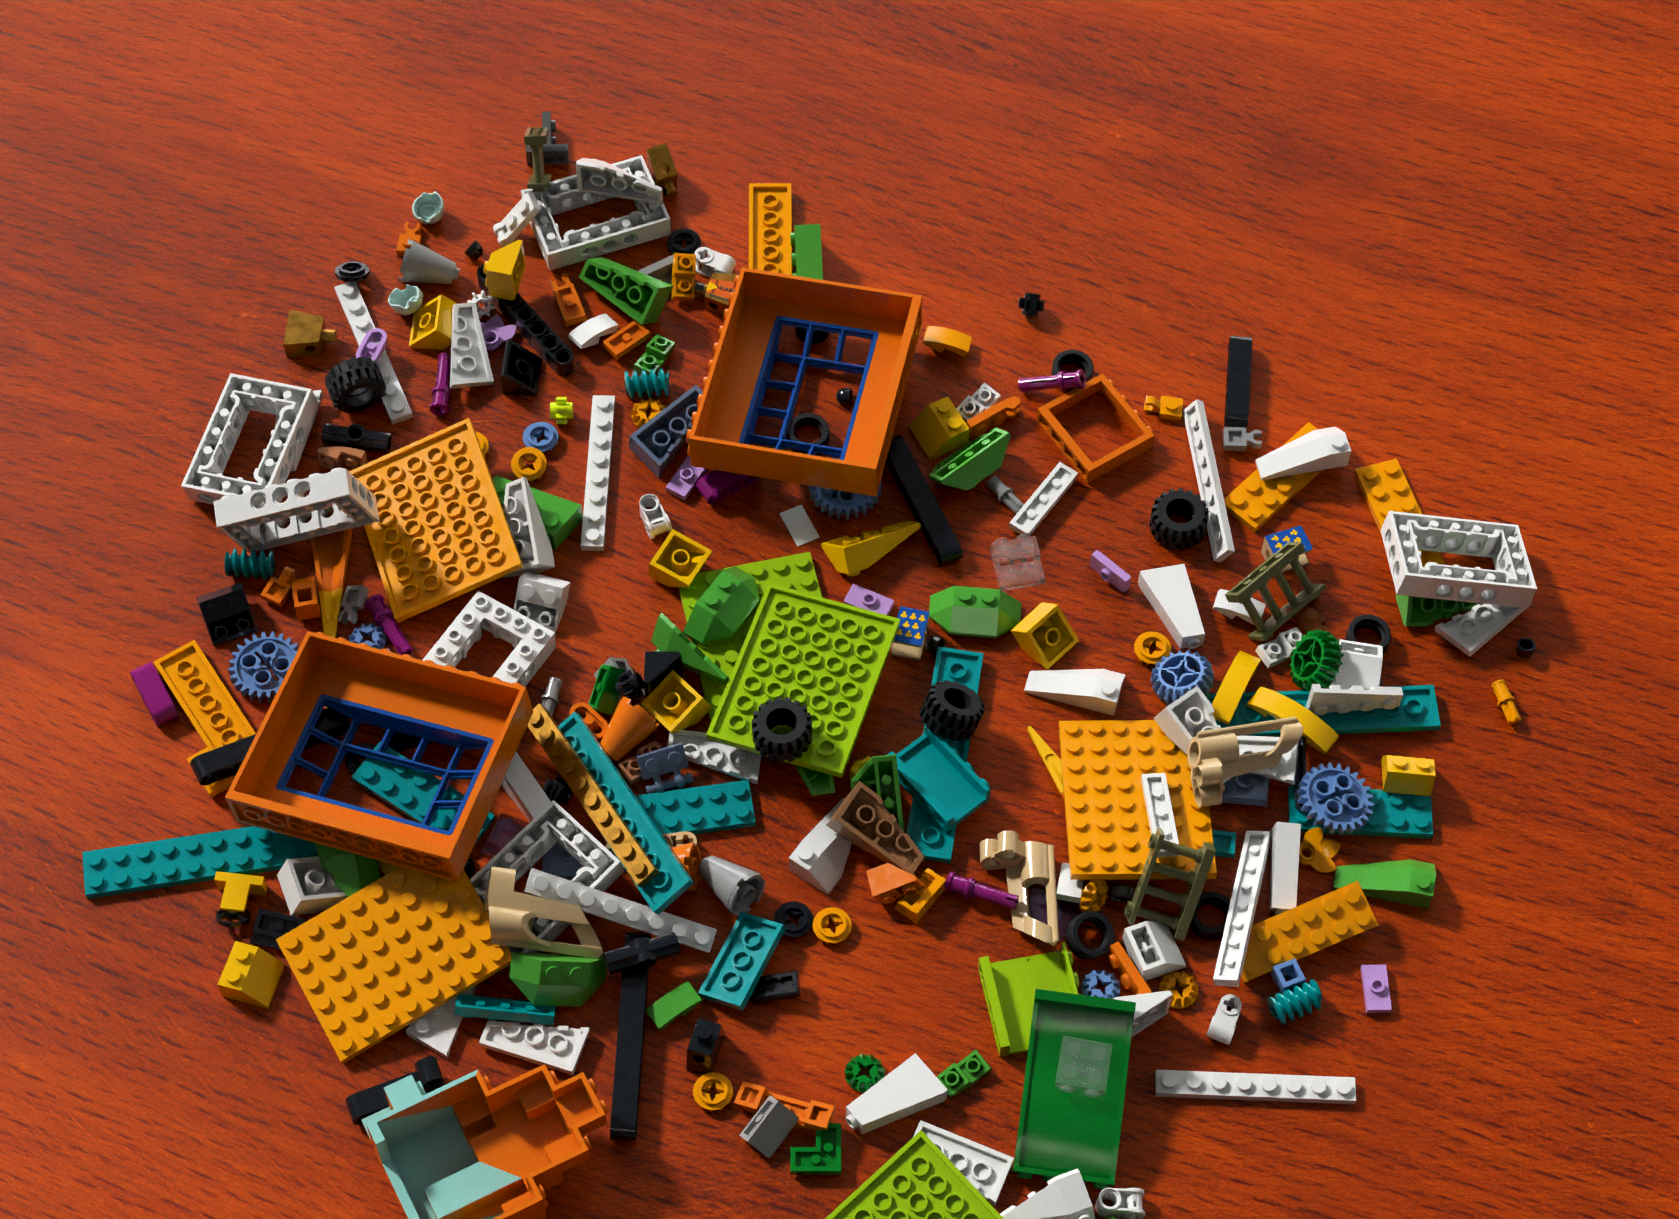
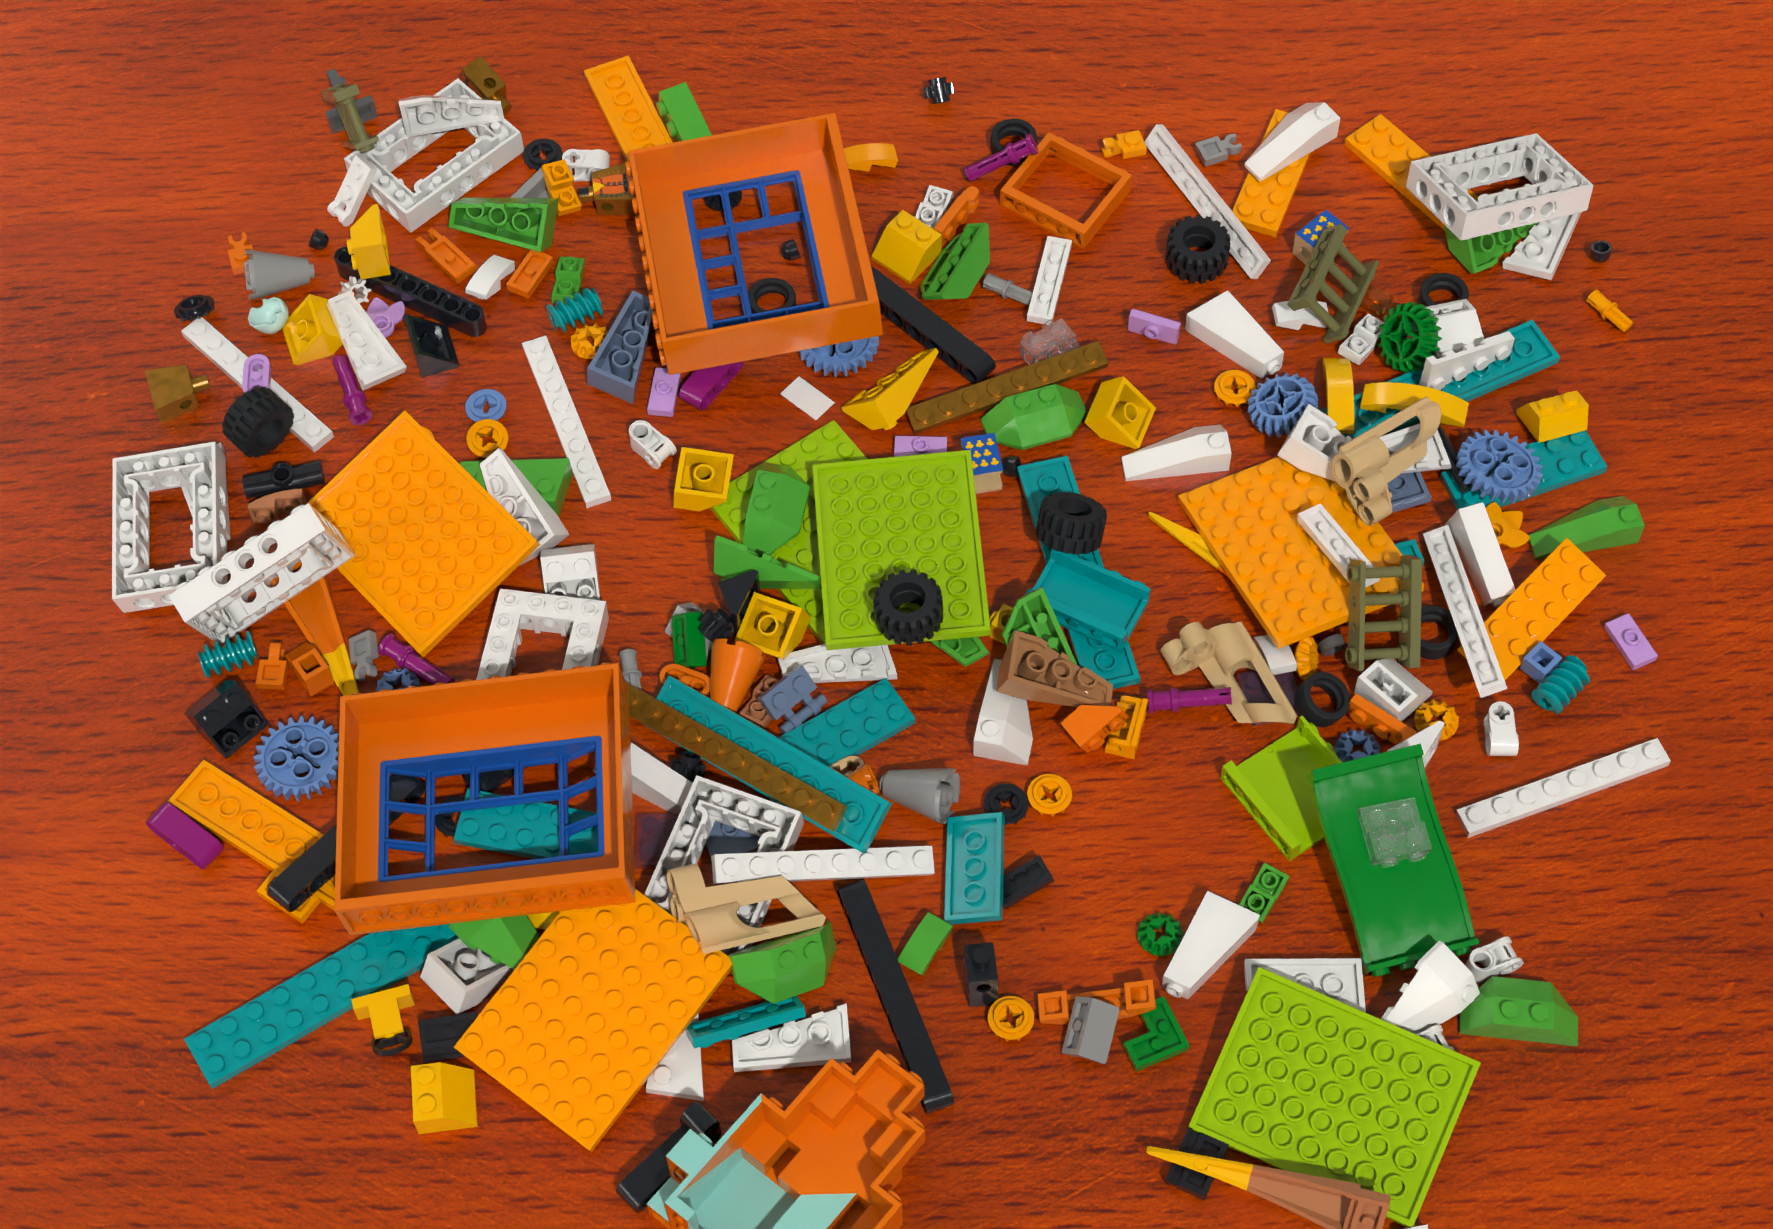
camera: 20 degrees left, 0 degrees up
(428, 208) = (247, 212): light aqua hair -> none
(561, 410) = (496, 370): neon yellow gear -> none
(642, 953) = (868, 900): black piece -> none
(945, 576) = (992, 391): none -> pearl gold plate
(1238, 381) = (1186, 94): black beam -> none

